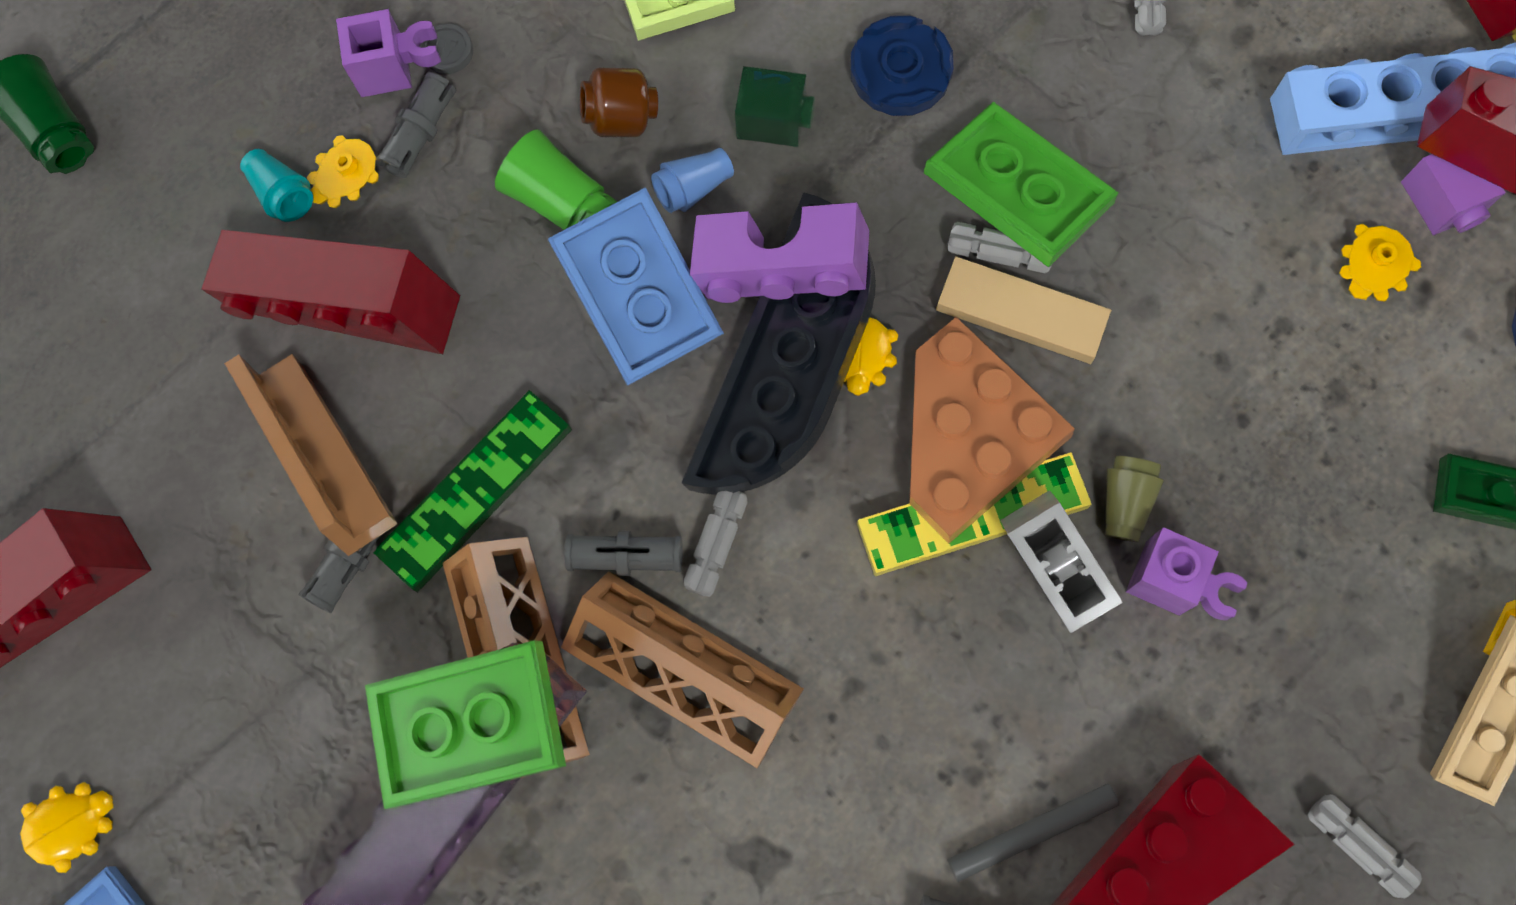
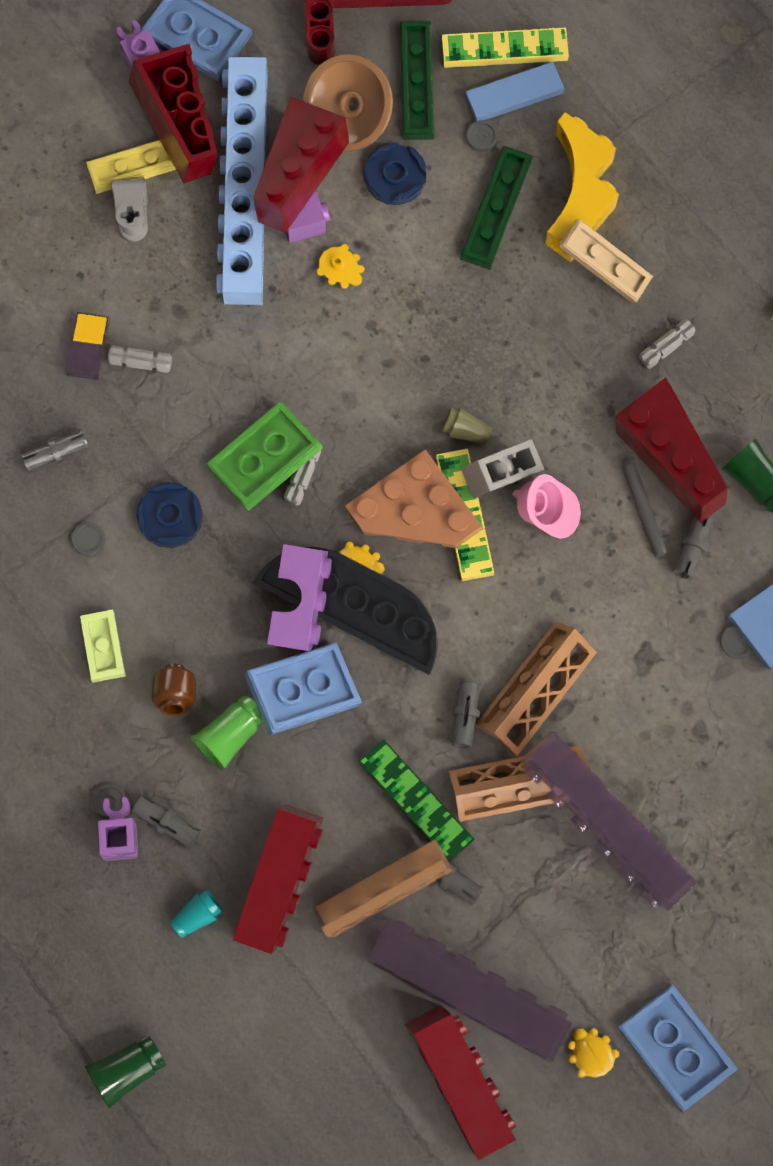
camera: 90 degrees left, 0 degrees up
(154, 614) = (470, 991): none -> clear purple brick
(343, 171) = (191, 871): yellow piece -> none
(464, 725) = (567, 790): bright green tile -> none
(689, 179) = (233, 653): medium blue cone -> none
(715, 542) = (465, 661): light grey axle -> none
(772, 106) = (191, 594): clear green brick -> none
(1006, 654) = (549, 506): none -> bright pink piece
(1023, 310) = (343, 468): tan tile -> none
(1178, 575) = (515, 408): medium lavender brick -> none

